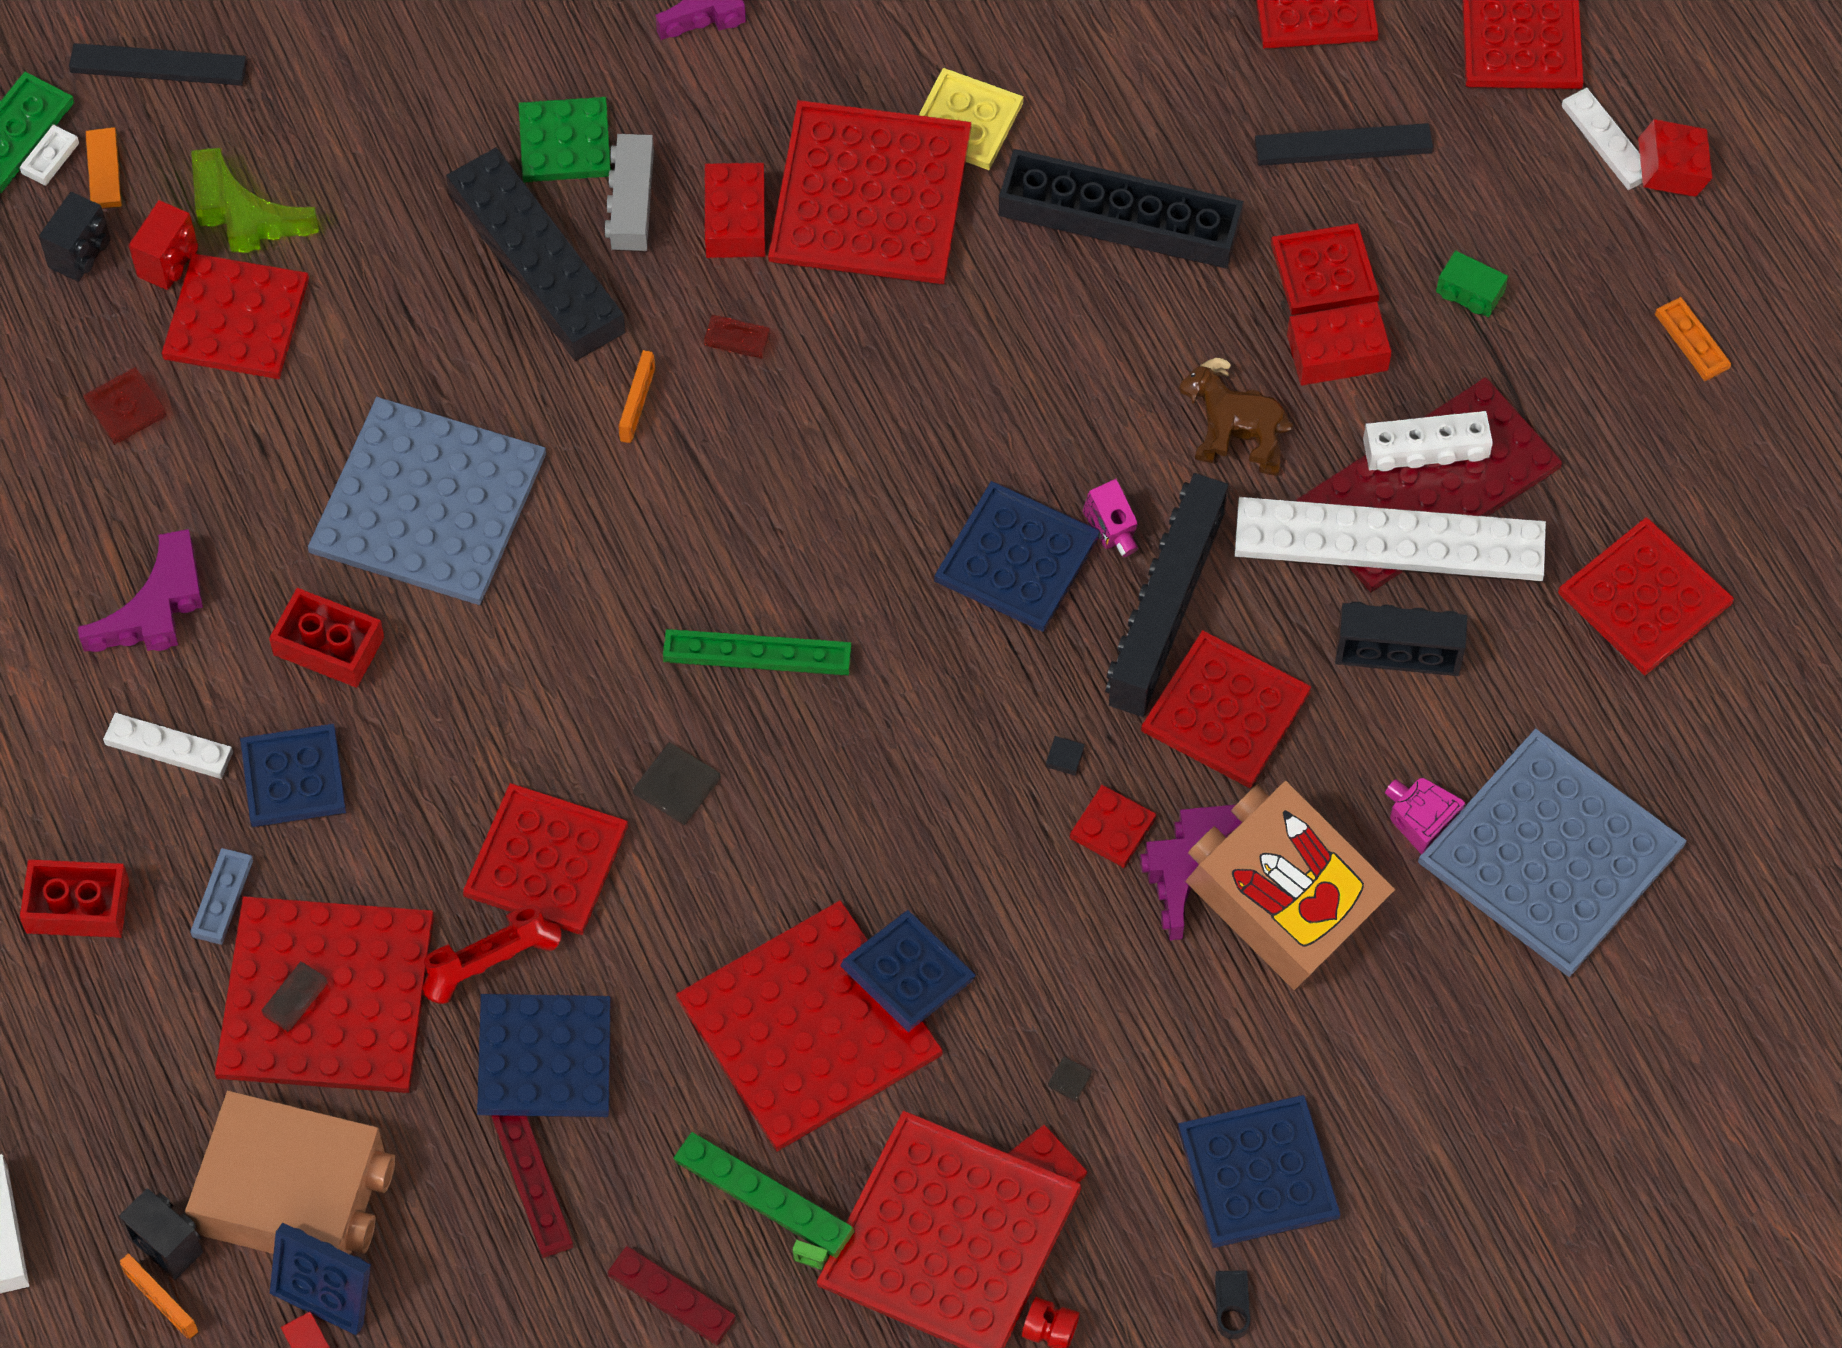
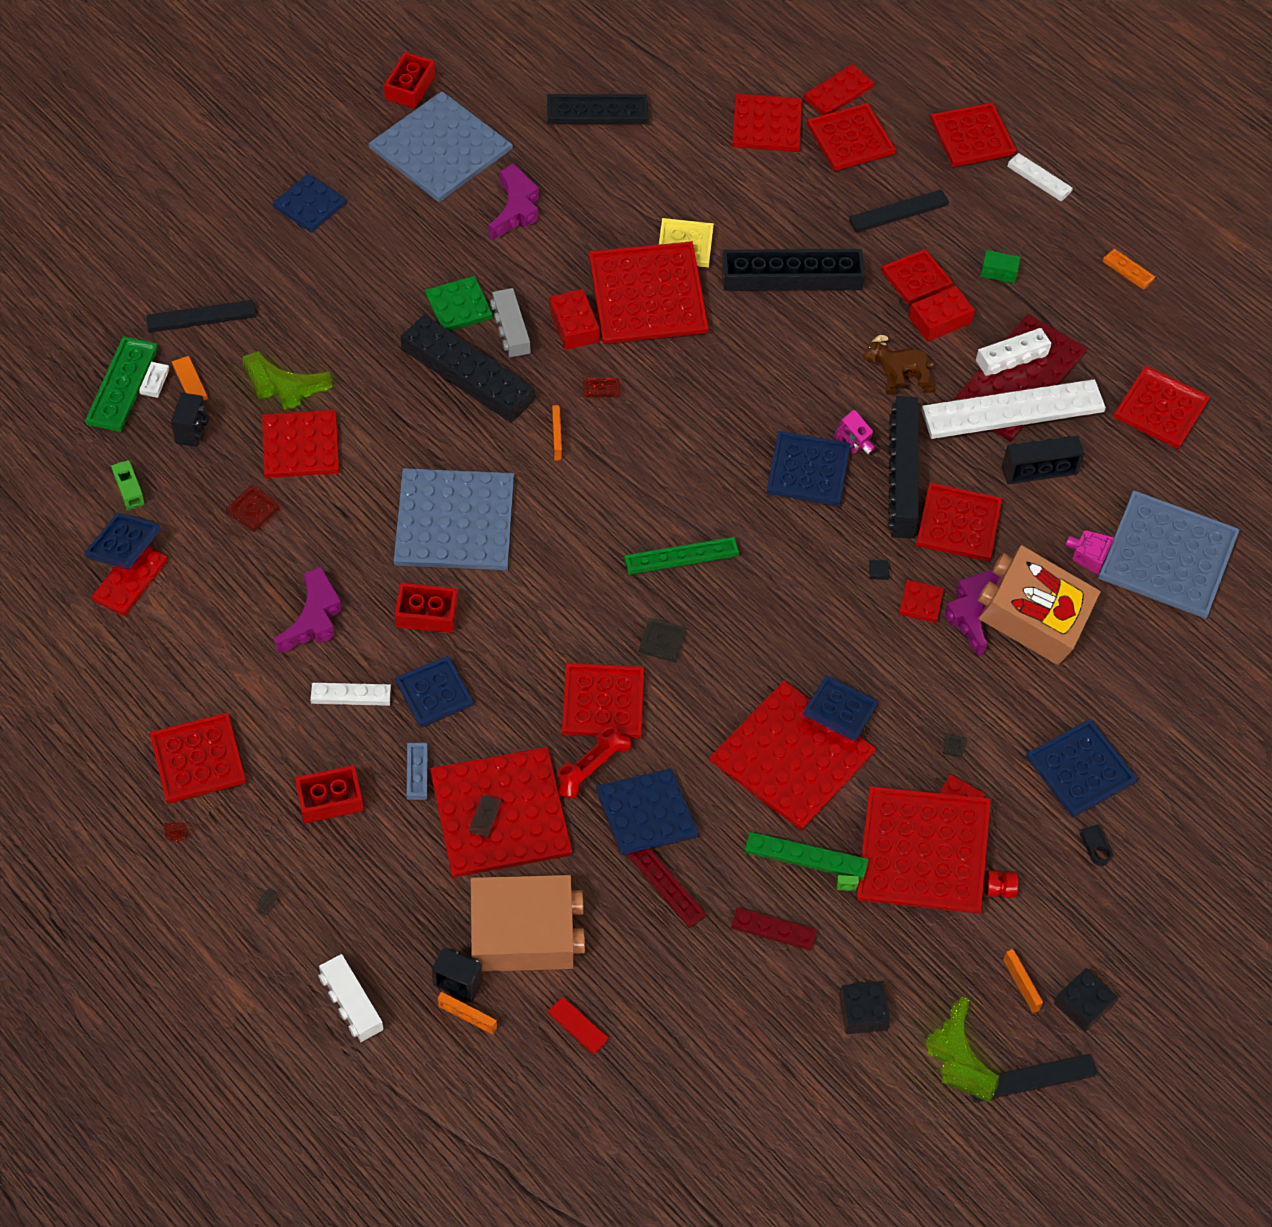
camera: 20 degrees left, 5 degrees down
(163, 245) = (245, 412): red brick -> none
(319, 1278) = (566, 973): dark blue plate -> none
(1675, 158) = (1082, 177): red brick -> none

